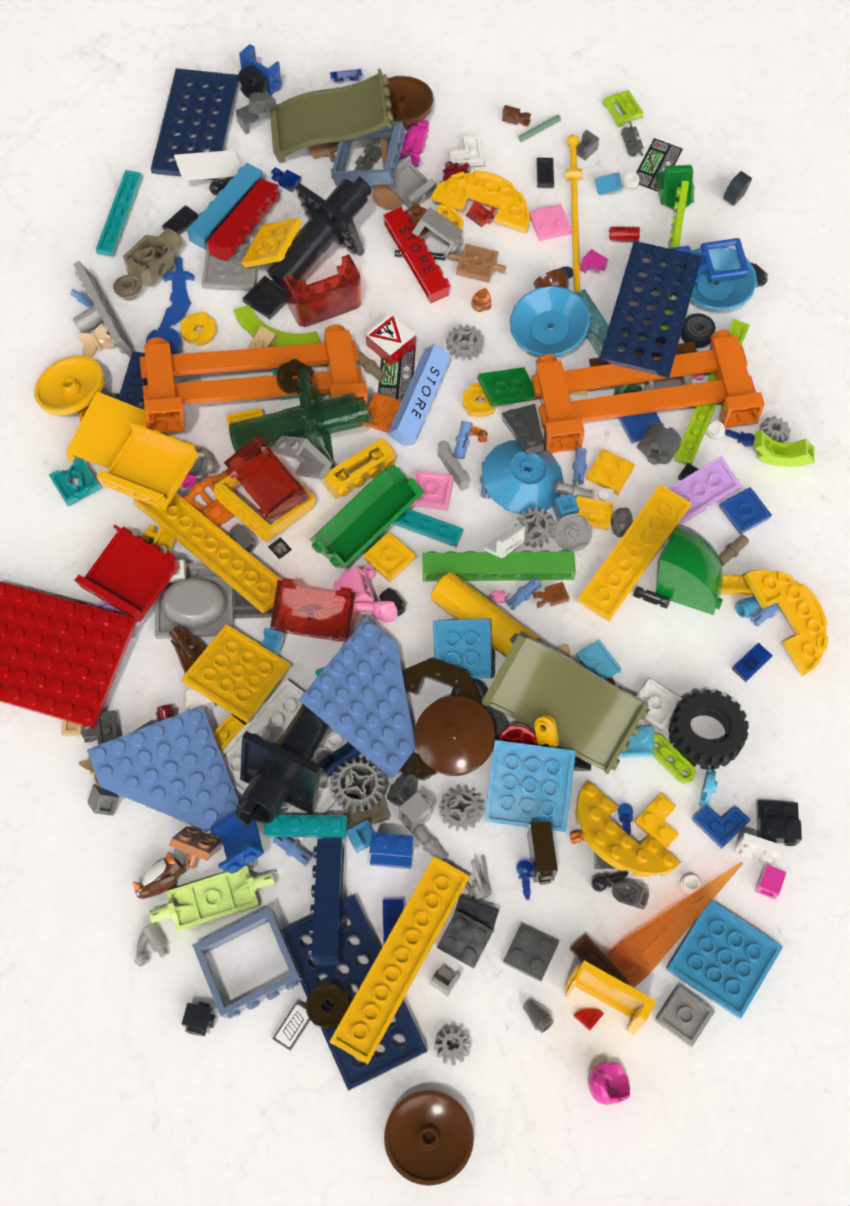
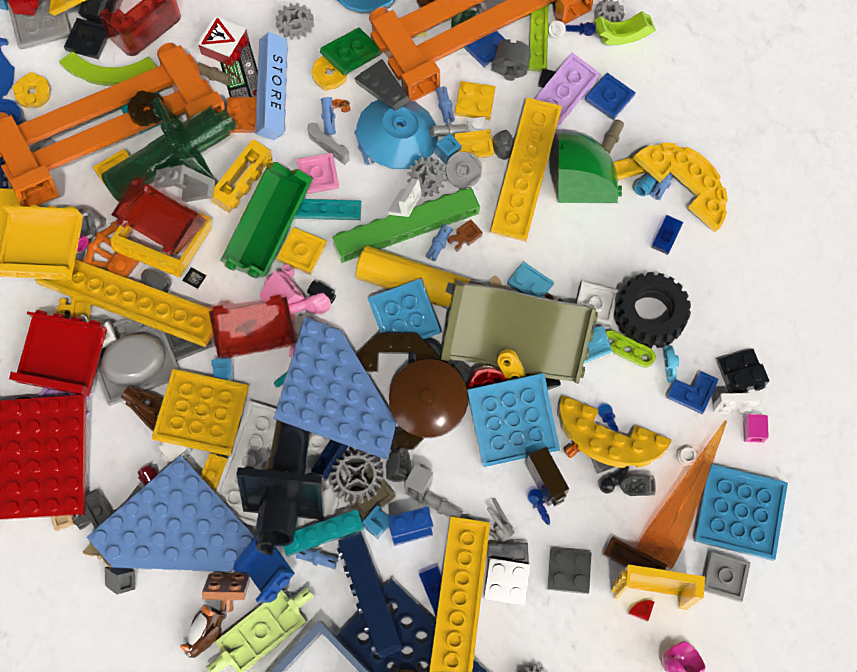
camera: 20 degrees left, 5 degrees up
(262, 339) = (99, 81): tan plate -> none
(445, 981) = (503, 626): light grey panel -> none
(453, 811) = (454, 456): light grey gear -> none
(498, 596) = (417, 253): bright pink plate -> none
(539, 1017) = (598, 626): dark grey cone -> none
(651, 597) = (556, 205): black axle -> none
(653, 823) = (633, 411): yellow plate -> none

